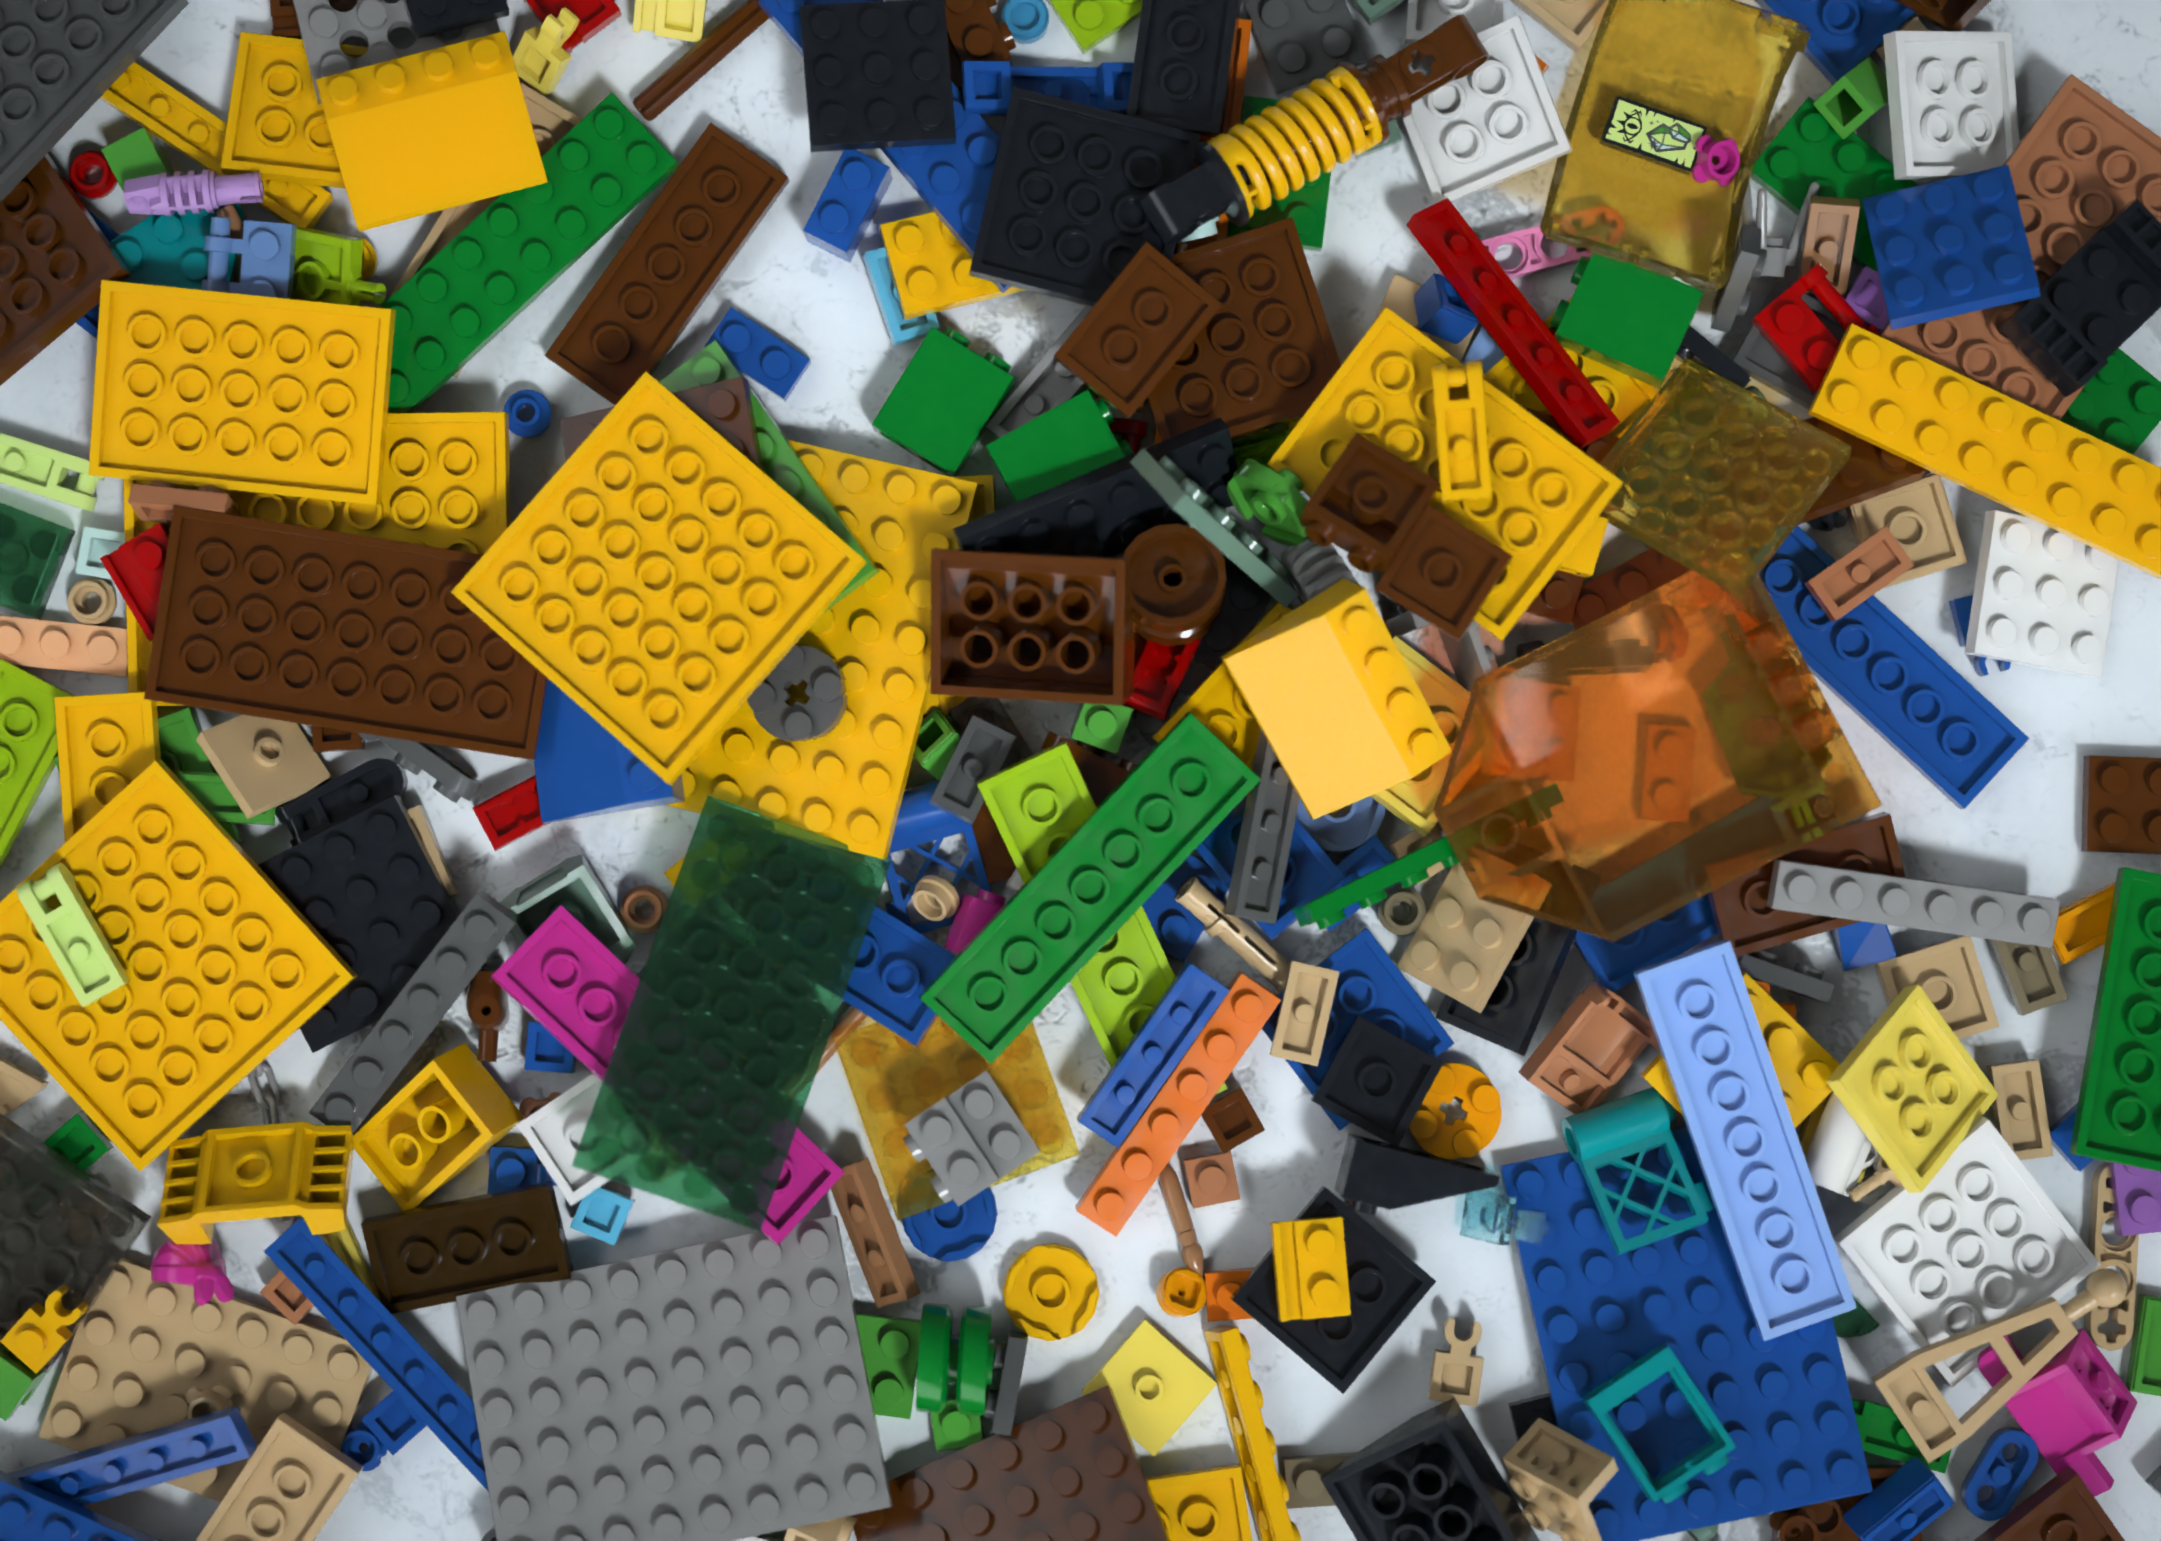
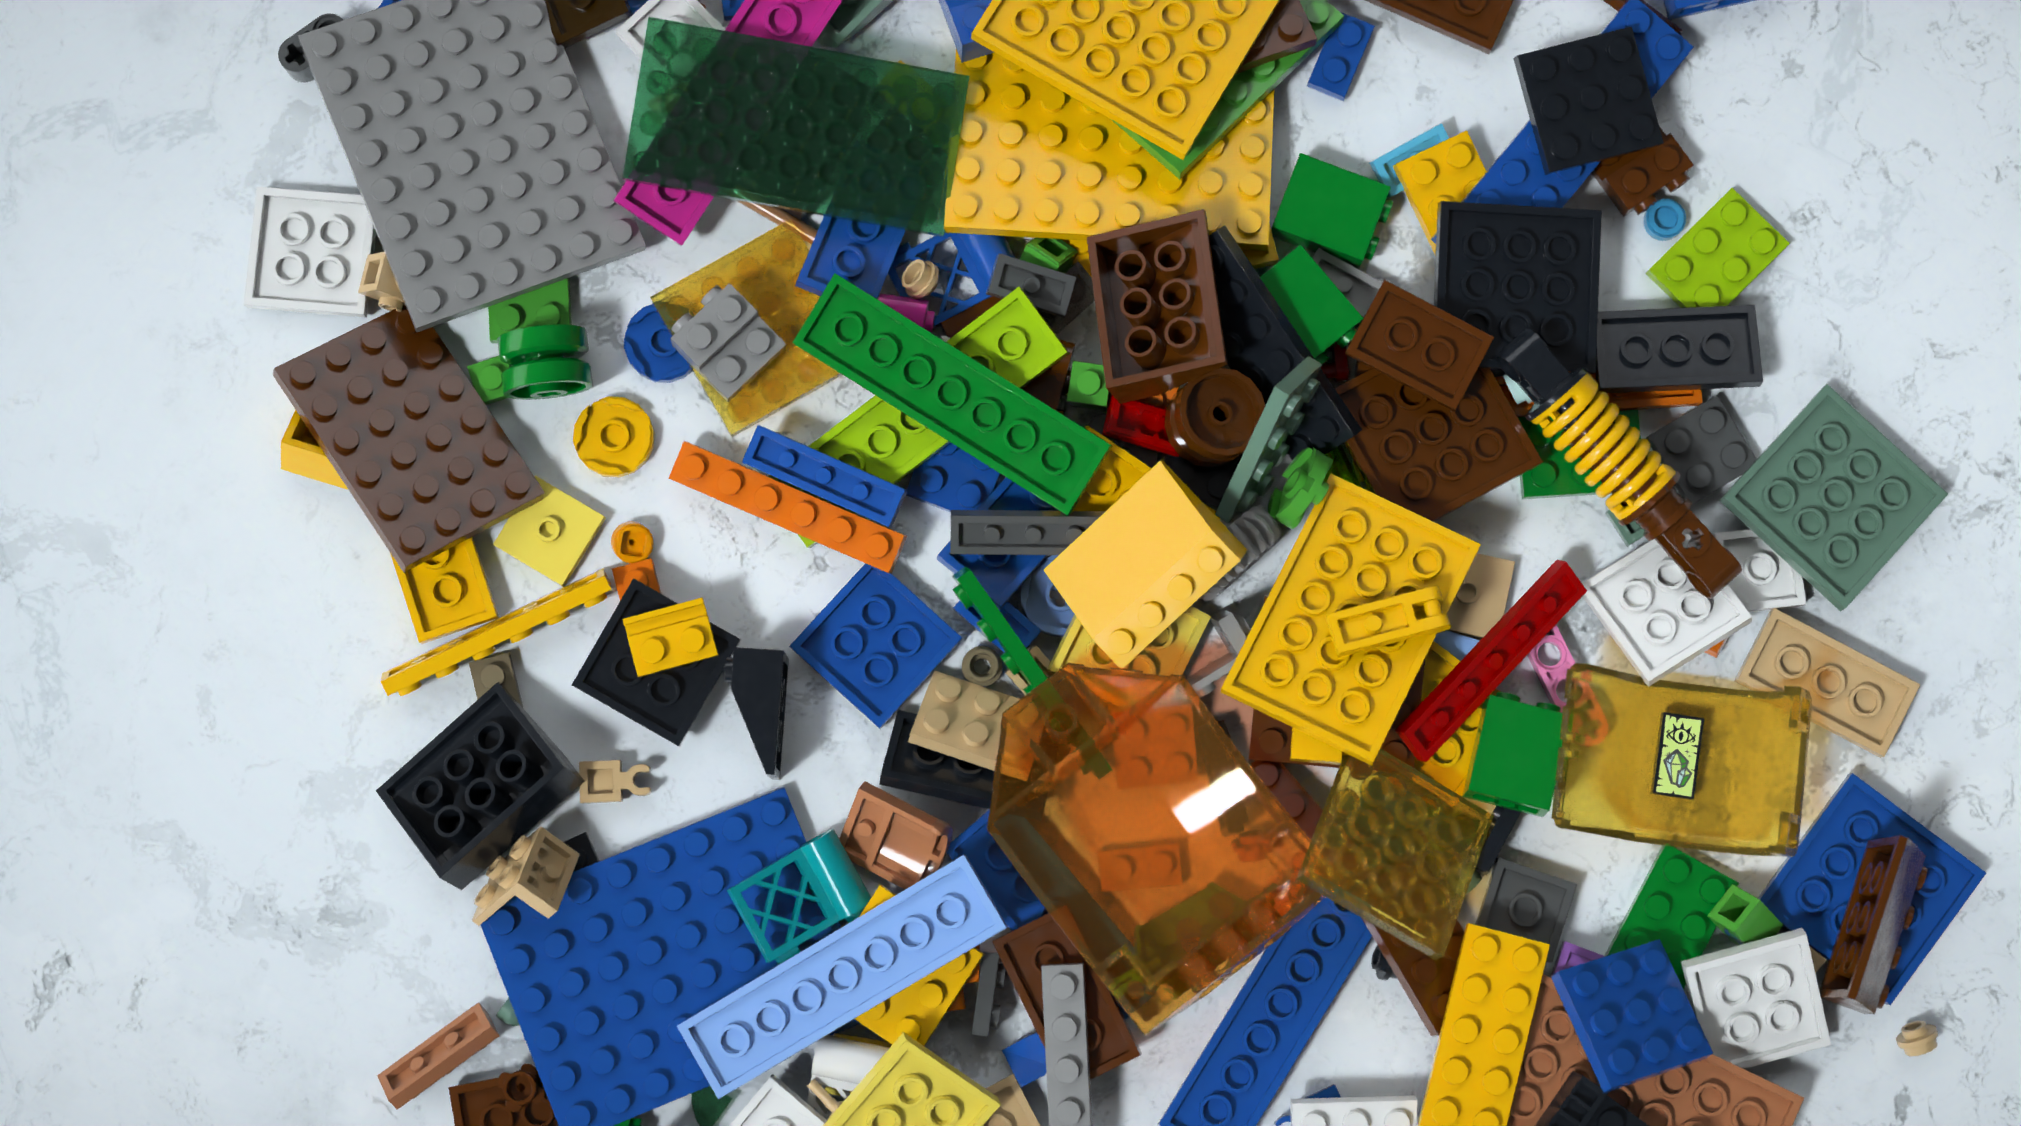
camera: 80 degrees right, 5 degrees down
(603, 1214) = (613, 63): medium azure plate -> none
(629, 909) = (868, 38): nougat plate -> none
(801, 720) = (1074, 153): dark grey plate -> none
(848, 204) = (1478, 102): blue brick -> none
(874, 1235) = (636, 282): medium nougat plate -> none
(990, 85) = (1616, 274): blue slope -> none
(1002, 1402) = (516, 413): dark grey plate -> none
(1191, 1250) = (667, 545): medium nougat piece -> none
(1211, 1179) = (729, 551): nougat plate -> none
(1232, 1120) = (782, 557): reddish brown plate -> none
(1233, 932) = (914, 572): tan pin -> none
(1304, 1013) = (881, 595): tan plate -> none
(1367, 504) = (1311, 555): reddish brown plate -> none
(1377, 1081) = (835, 666): black plate -> none
(1443, 310) = (1490, 603): blue slope -> none
(1443, 572) = (1267, 628): reddish brown plate -> none
(1465, 1136) = (811, 719): light orange plate -> none
(1491, 1218) = (737, 789): clear light blue plate -> none
(1632, 1379) = (622, 916): teal window -> none
(1726, 160) = (1666, 822): dark pink plate -> none
(1735, 296) = (1554, 845): dark grey plate -> none
(1777, 256) = (1596, 869): light grey plant -> none
(1799, 333) = (1535, 906): red plate -> none
(1830, 238) = (1614, 919): medium nougat plate -> none
(1859, 574) = (1339, 994): nougat plate -> none
(1920, 523) = (1383, 1034): tan plate -> none

